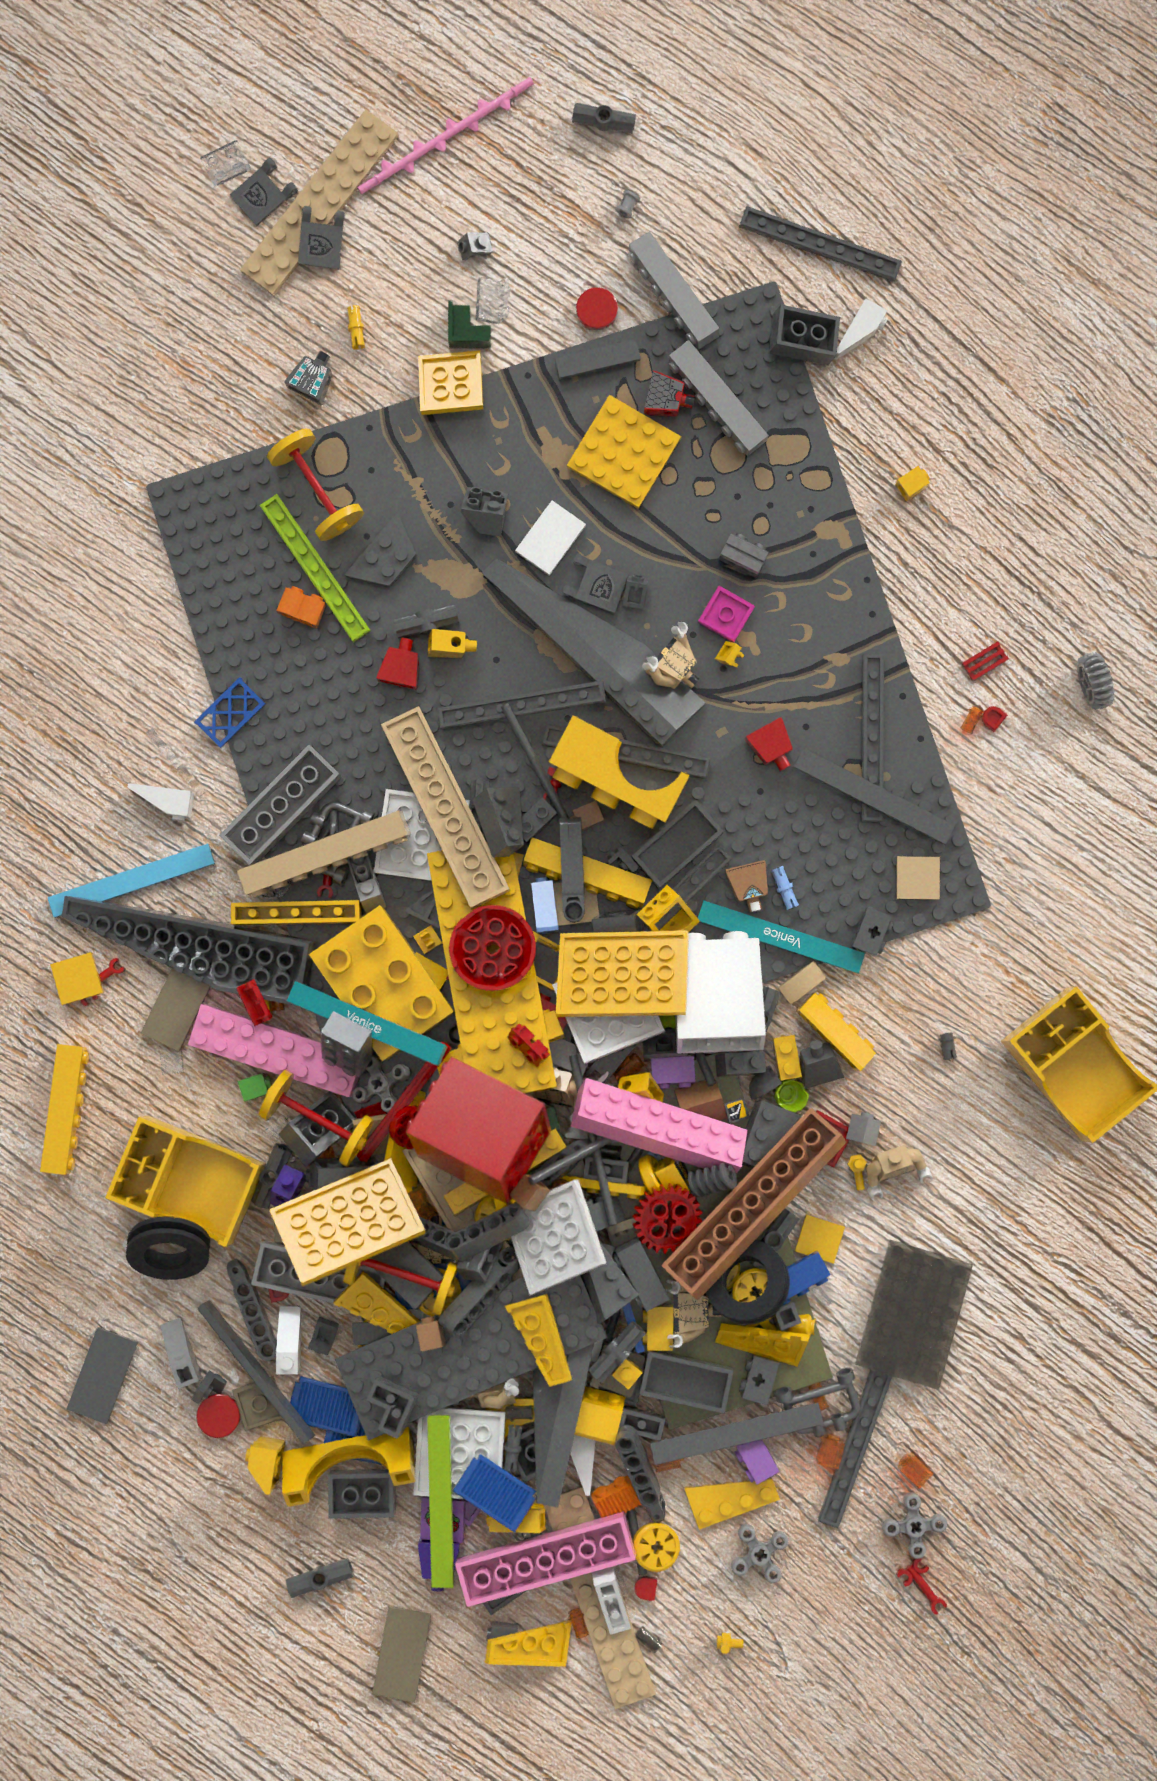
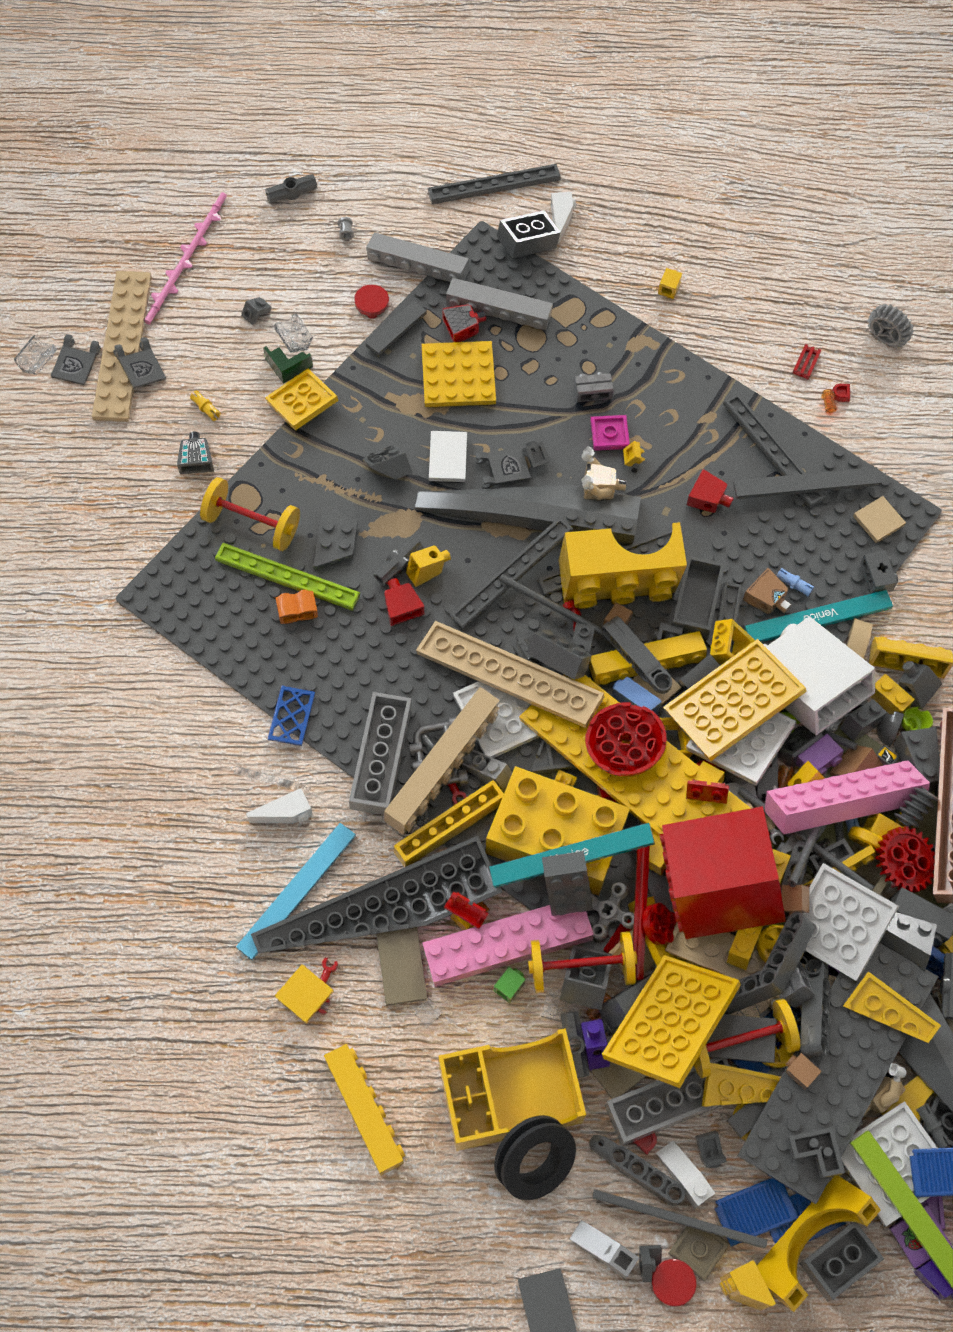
camera: 40 degrees left, 20 degrees down
(519, 1412) = (915, 1093): clear smoke pin -> none

